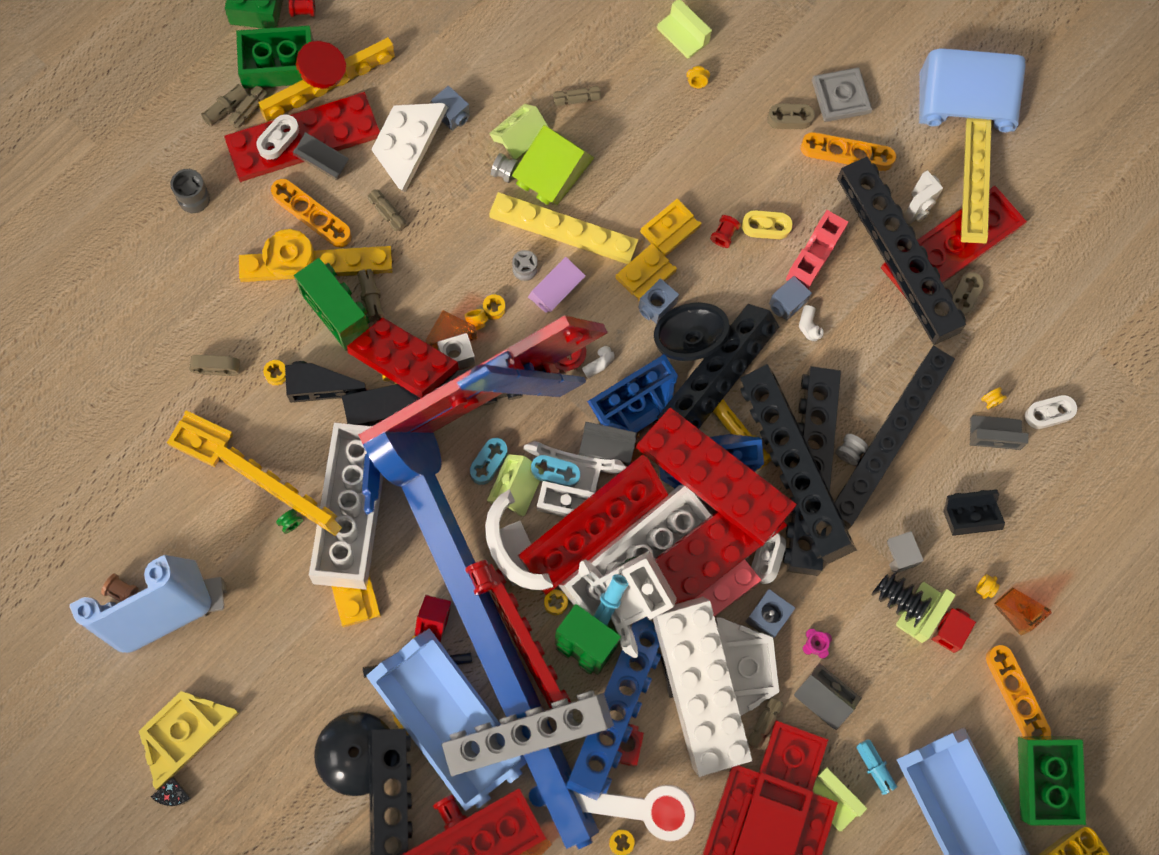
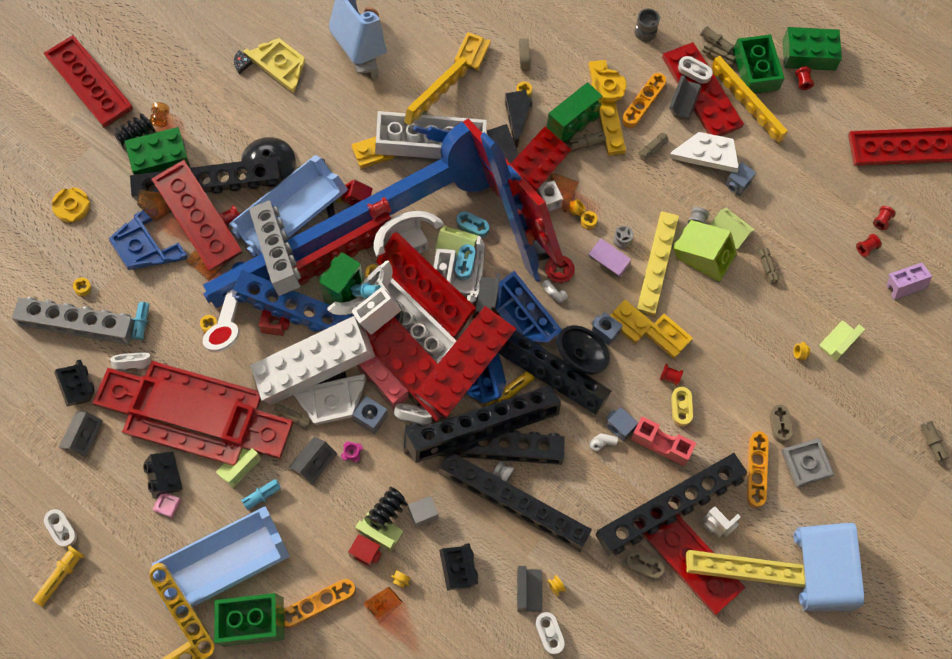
camera: 90 degrees right, 5 degrees down
(321, 64) = (754, 86): red tile -> none

